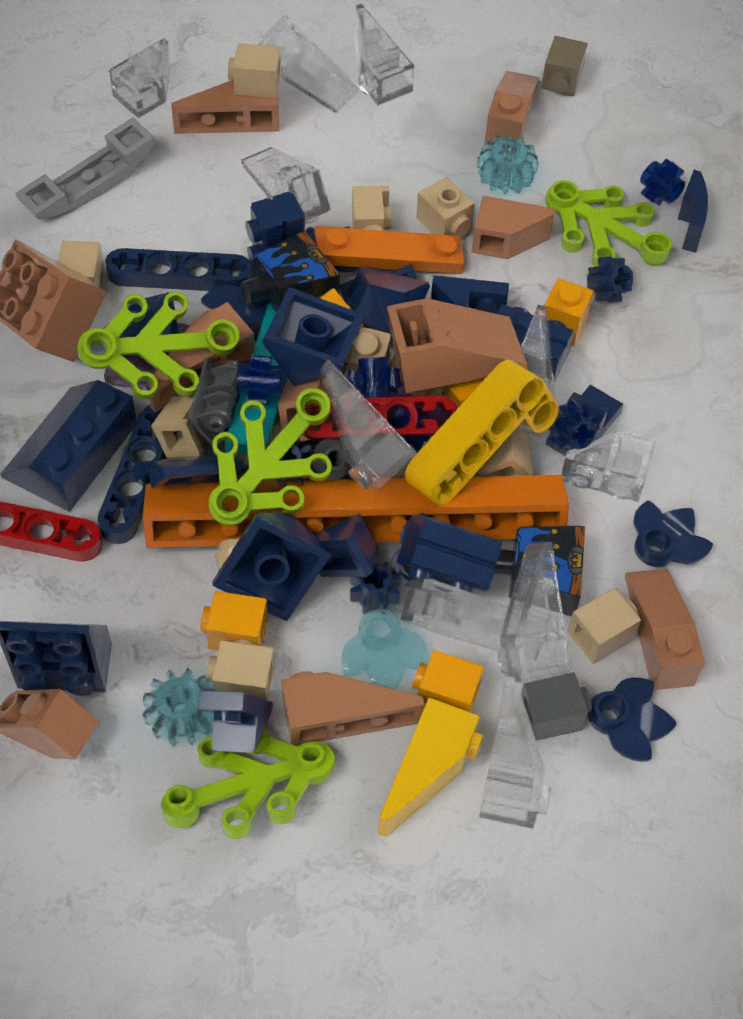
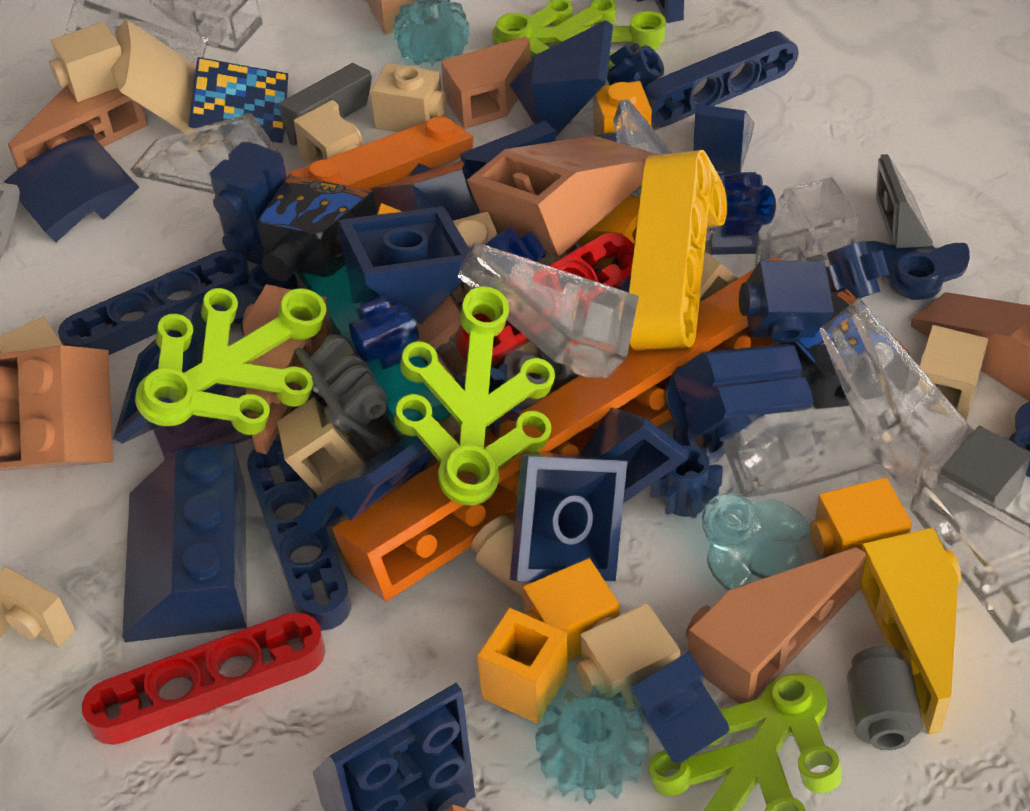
camera: 30 degrees left, 10 degrees down
(178, 636) = (523, 665): none -> light orange brick
(195, 150) = (71, 183): none -> dark blue slope
(296, 105) = (154, 75): none -> tan slope
(340, 147) = (233, 90): none -> tile
(361, 795) = (883, 698): none -> dark grey brick
(402, 180) = (347, 87): none -> dark grey slope
(519, 512) = (786, 299): none -> dark blue brick
(550, 256) = (565, 77): none -> dark blue slope
(610, 517) = (856, 269): none -> dark blue gear
(624, 363) = (723, 136): none -> dark blue slope
(691, 491) = (899, 207): none -> dark grey slope
(709, 319) = (765, 61): none -> dark blue beam

